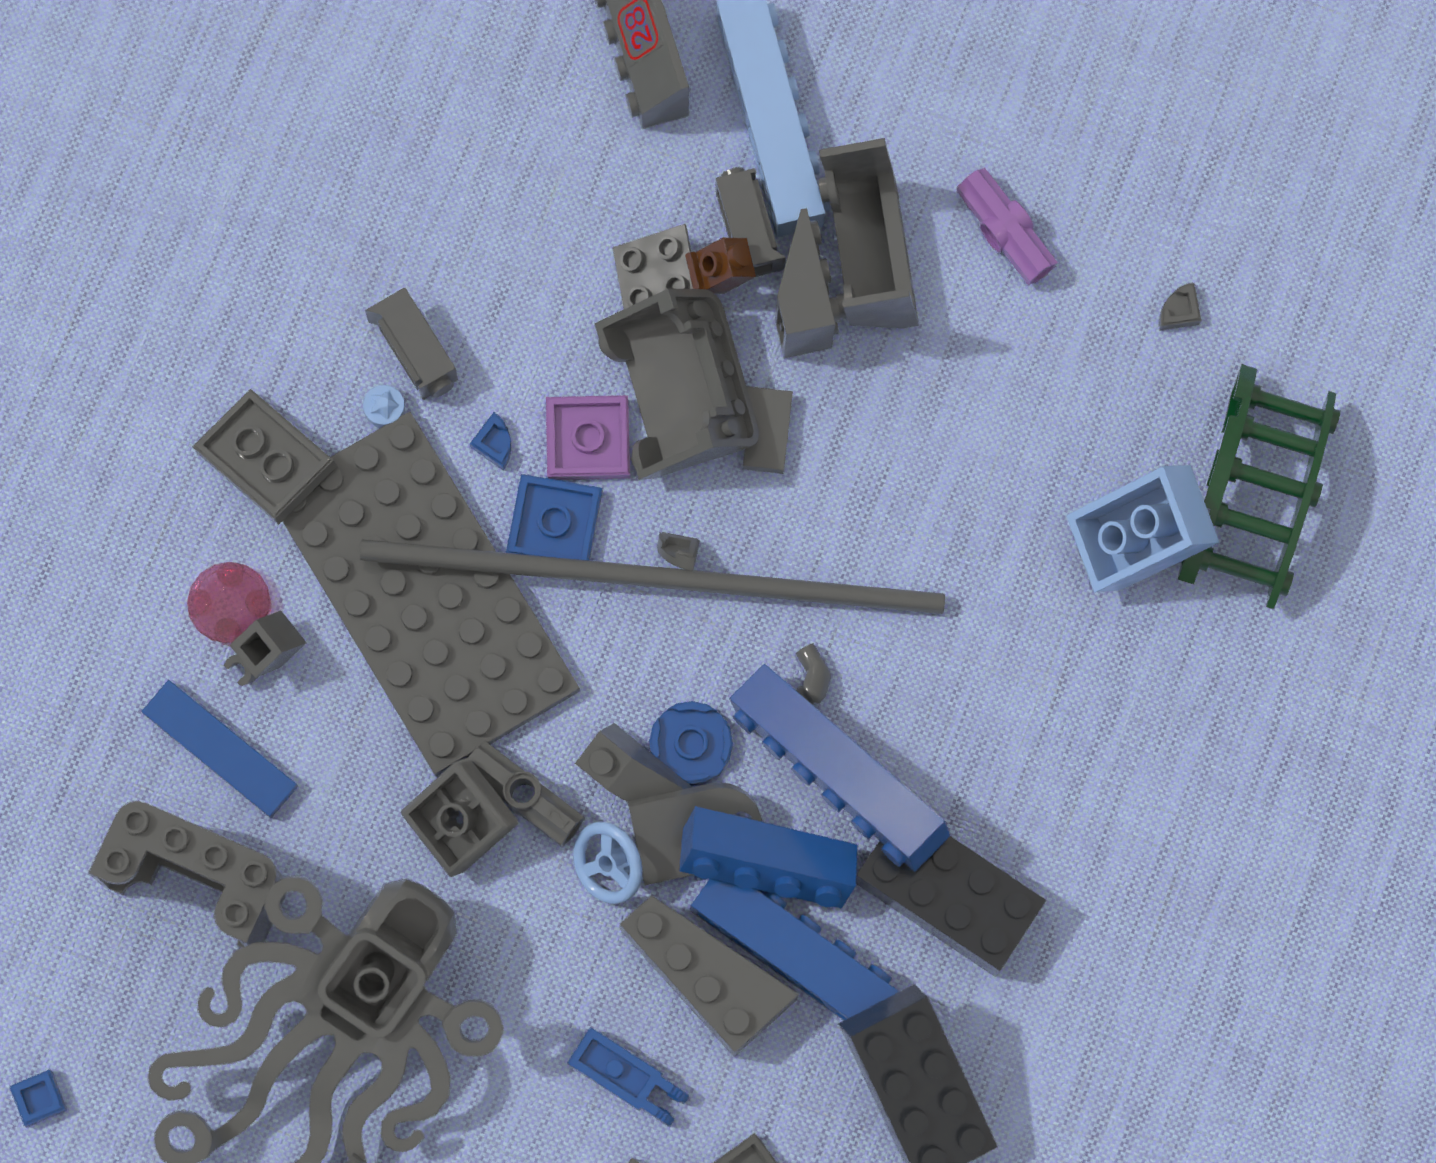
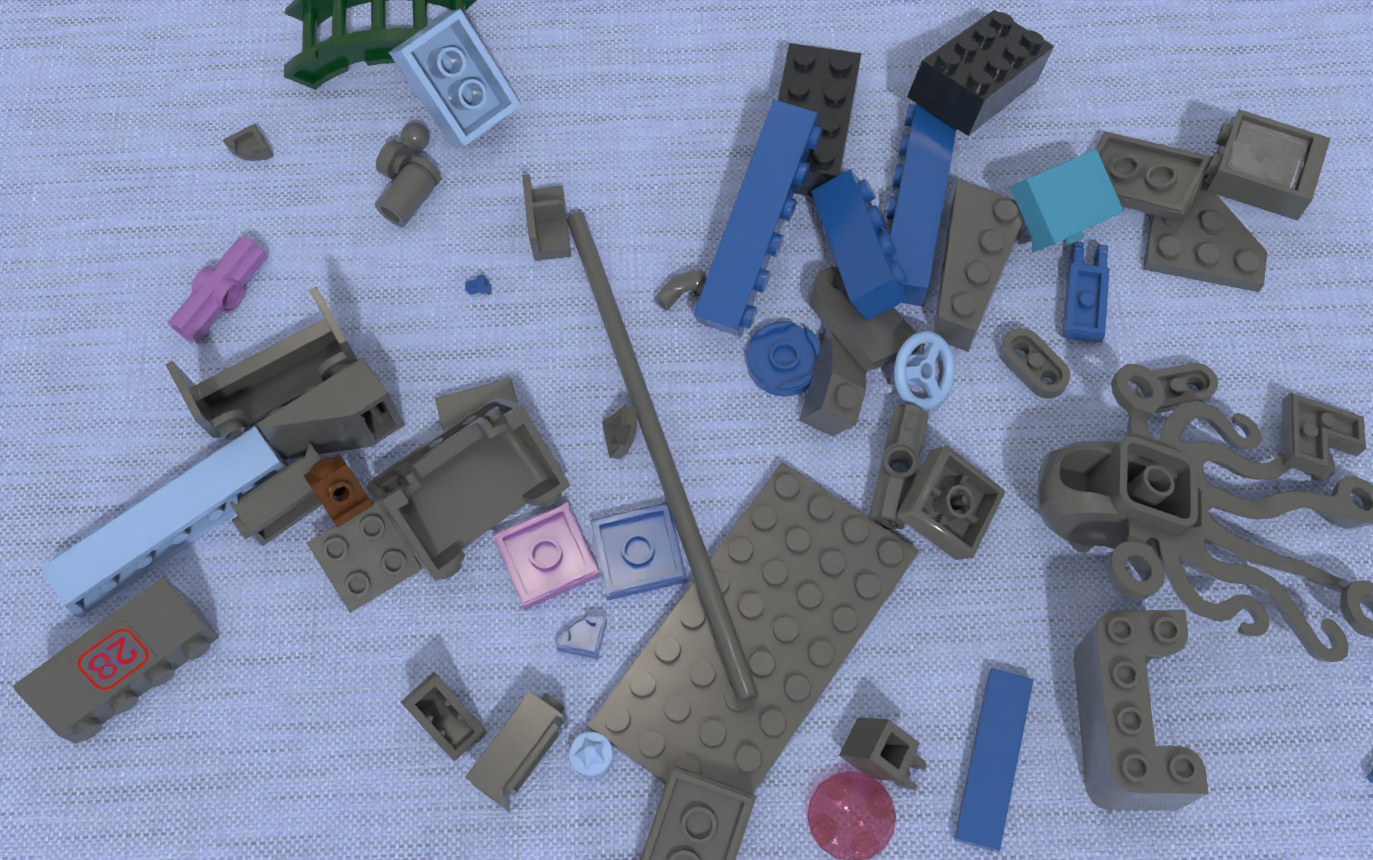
camera: 105 degrees left, 10 degrees down
(471, 292) = (443, 716): none -> dark grey slope
(483, 1107) = (1176, 388): none -> dark grey plate
(572, 983) = (1038, 363): none -> dark grey plate
(725, 1094) = (1066, 200): none -> dark azure container
(904, 479) = (478, 285): none -> blue piece
(951, 570) = (546, 221): none -> dark grey panel
(1043, 445) = (408, 191): none -> dark grey piece
(1090, 447) = (396, 154): none -> dark grey plate

